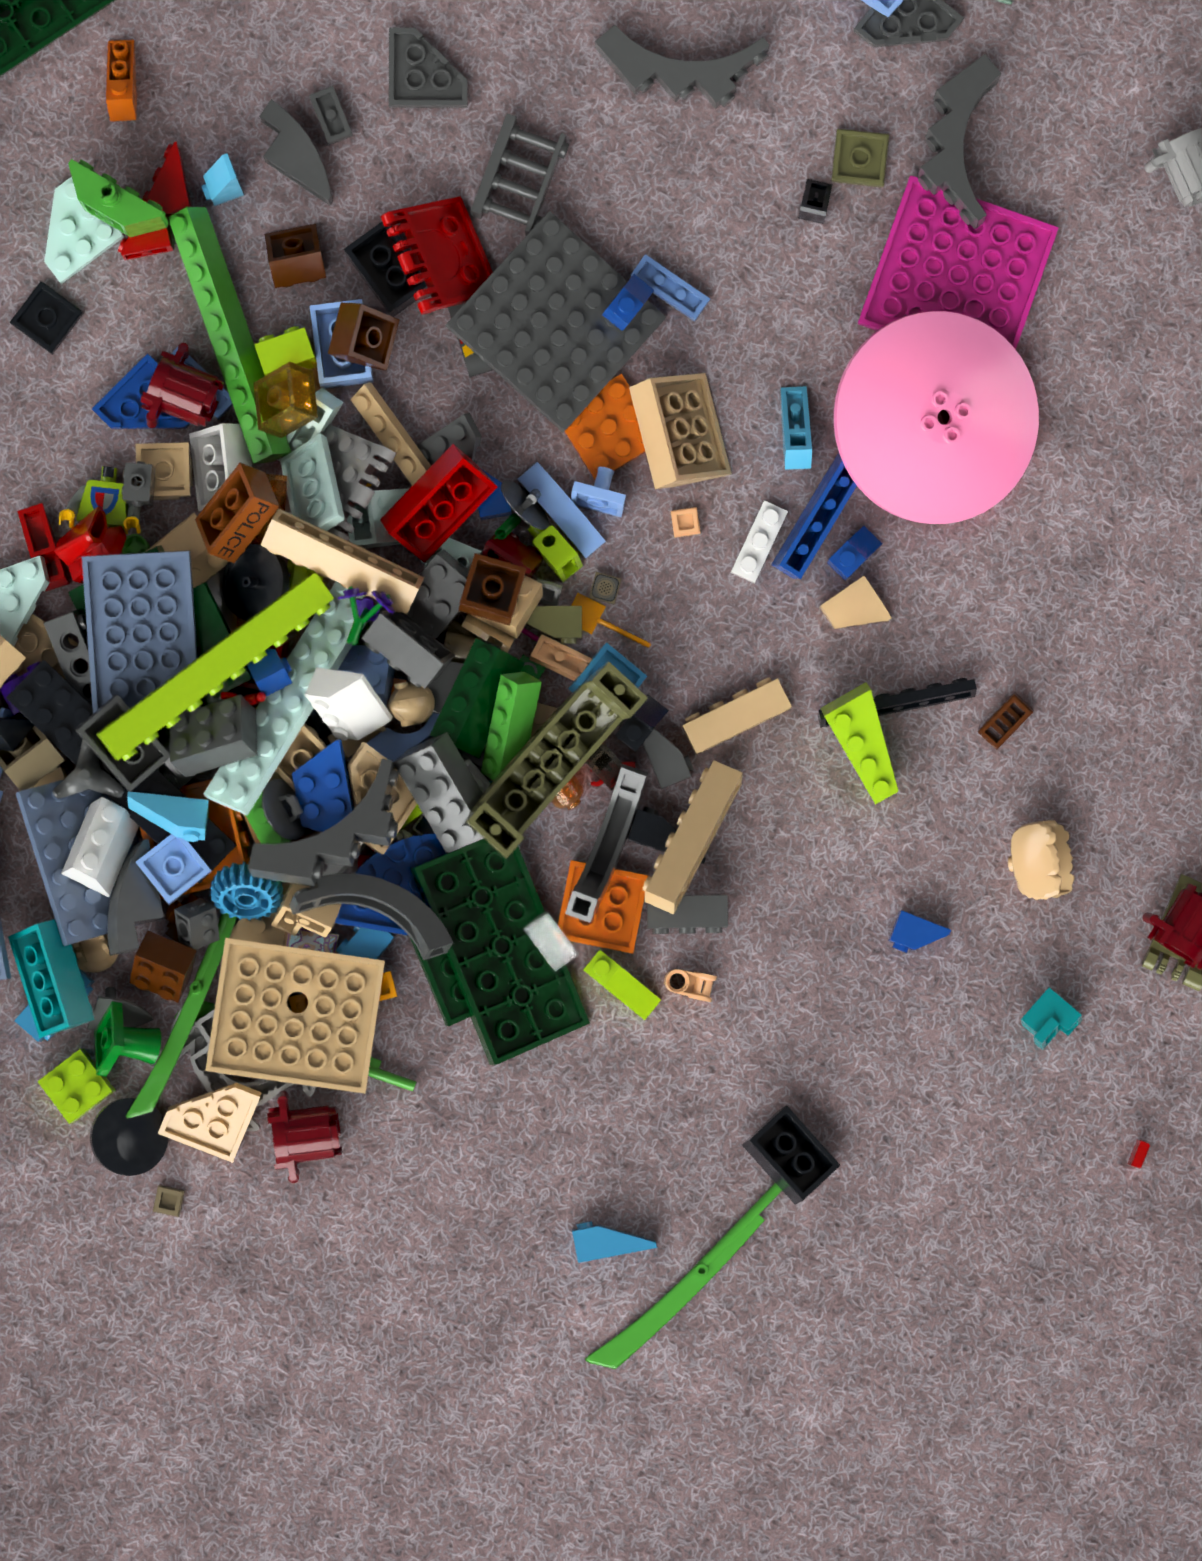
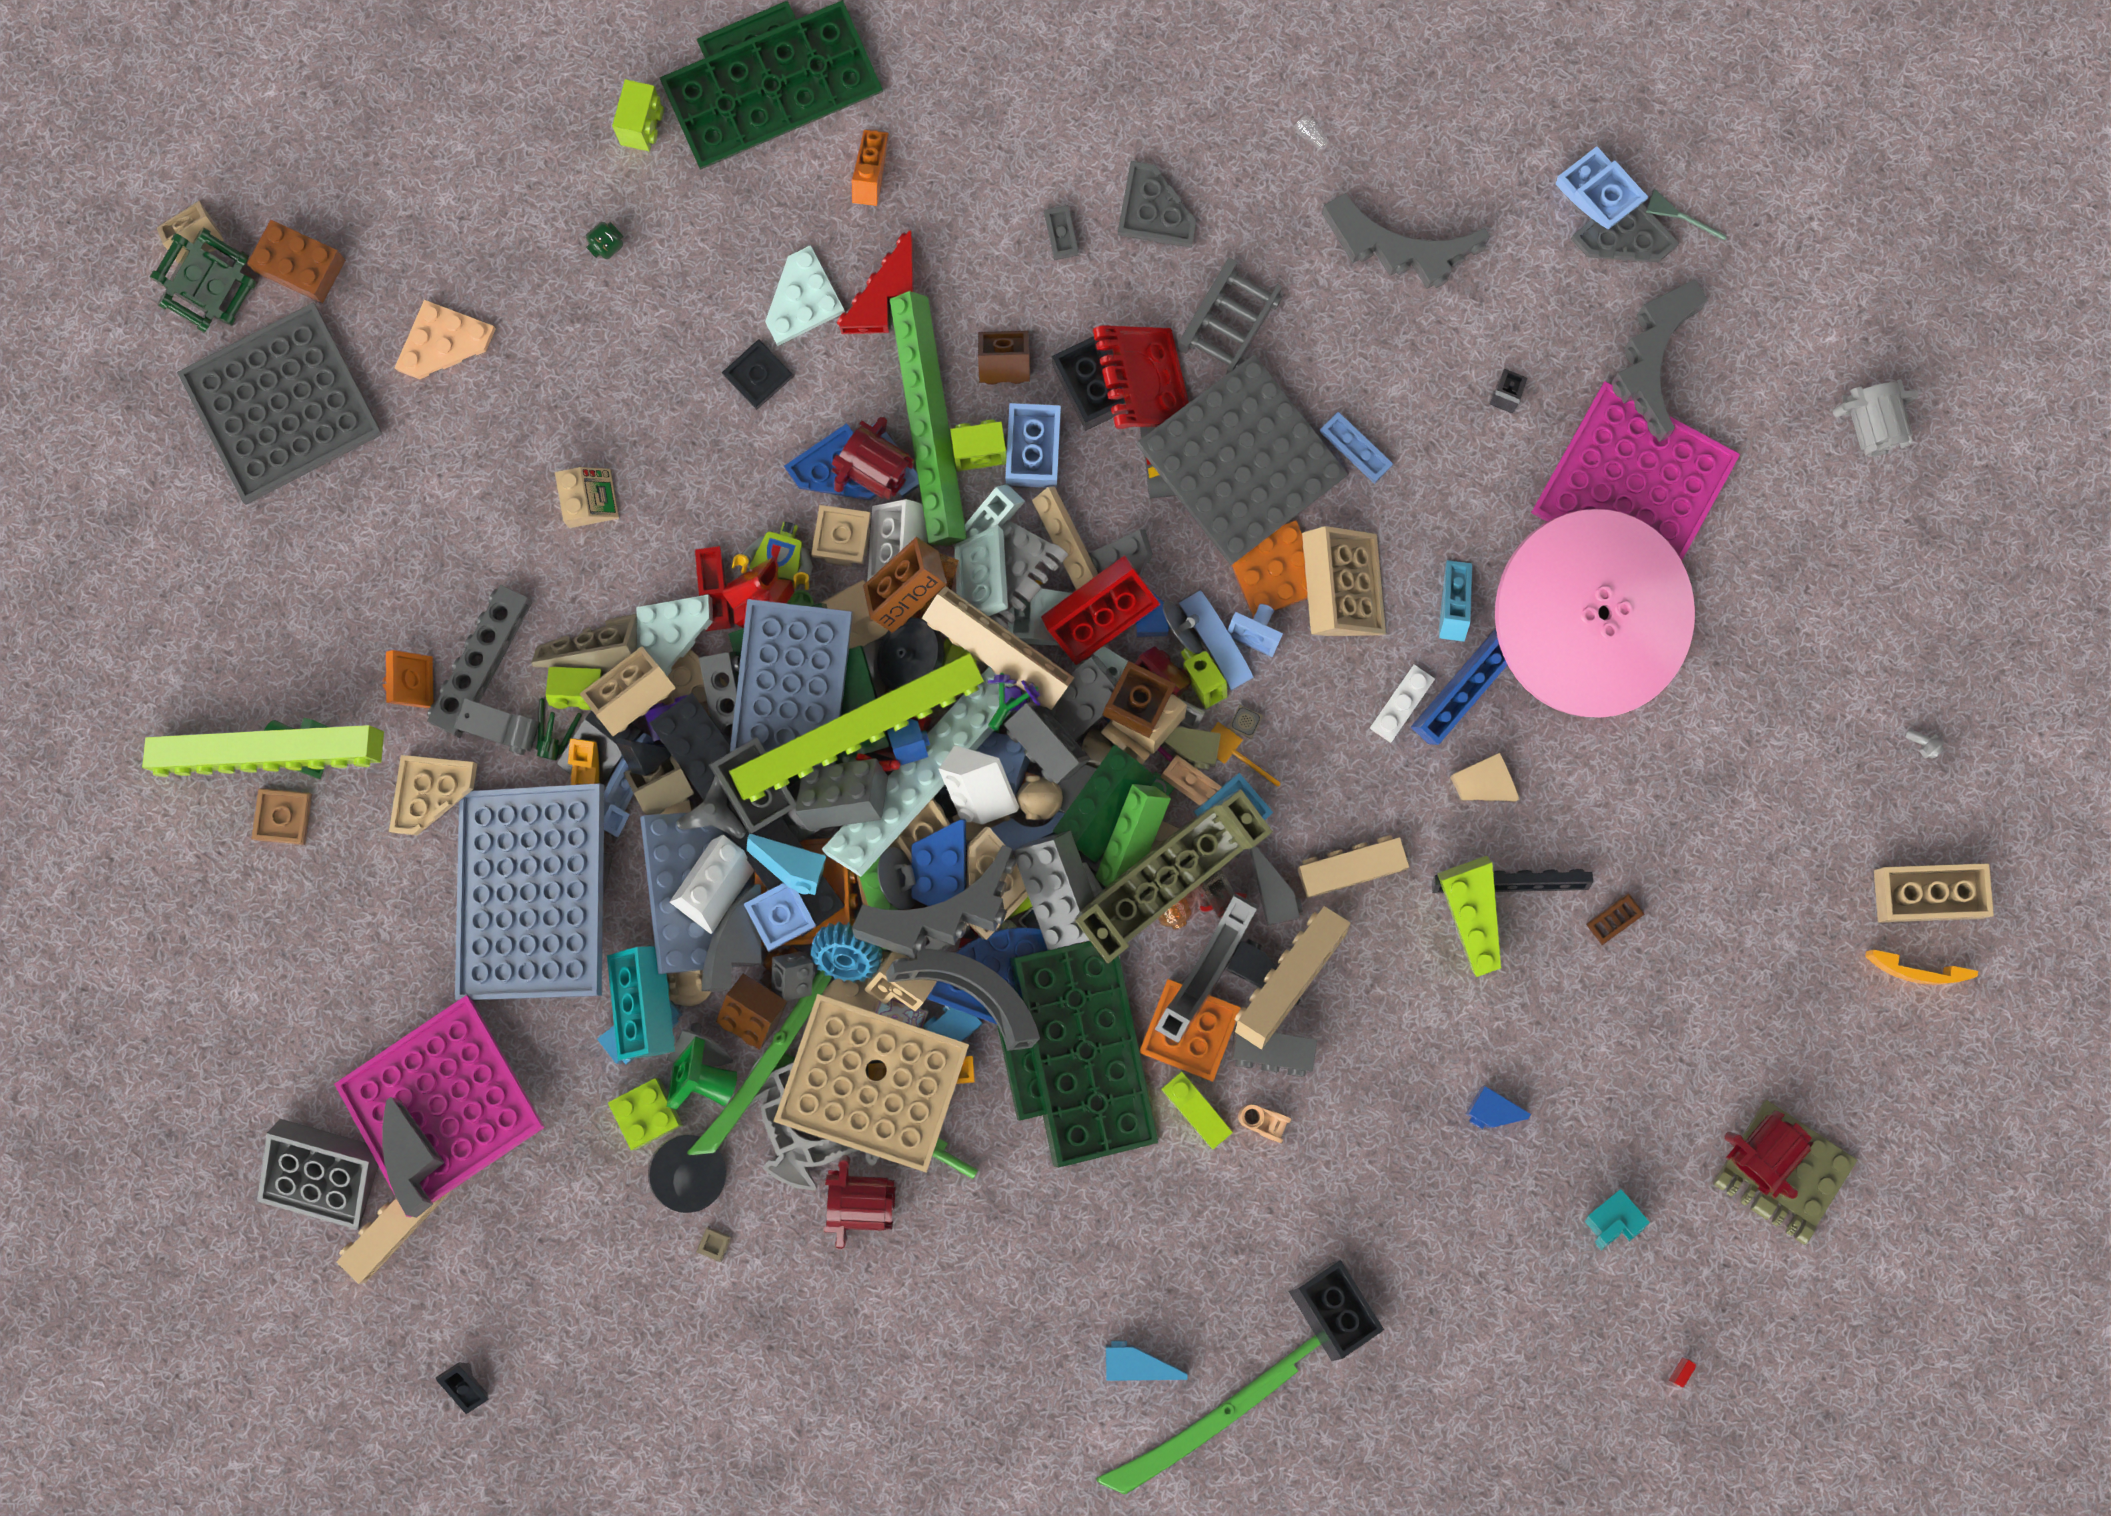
camera: 15 degrees right, 5 degrees down
(115, 205) = (842, 276): bright green slope -> none
(136, 494) = (815, 552): dark grey head -> none
(213, 1120) = (772, 1172): plate -> none
(221, 182) = (947, 274): medium azure slope -> none
(285, 400) = (970, 487): clear yellow brick -> none
(294, 153) = (1020, 261): dark grey slope -> none
(363, 336) = (1056, 439): reddish brown slope -> none
(507, 527) = (1162, 645): green piece -> none
(551, 941) = (1135, 1054): clear slope -> none
(628, 302) = (1314, 453): blue slope -> none
(641, 724) = (1260, 858): black slope -> none
(685, 522) = (1333, 672): light nougat tile -> none
(854, 553) = (1492, 730): blue slope -> none
(860, 158) = (1558, 357): olive tile -> none
(1041, 860) = (1631, 1061): tan animal -> none

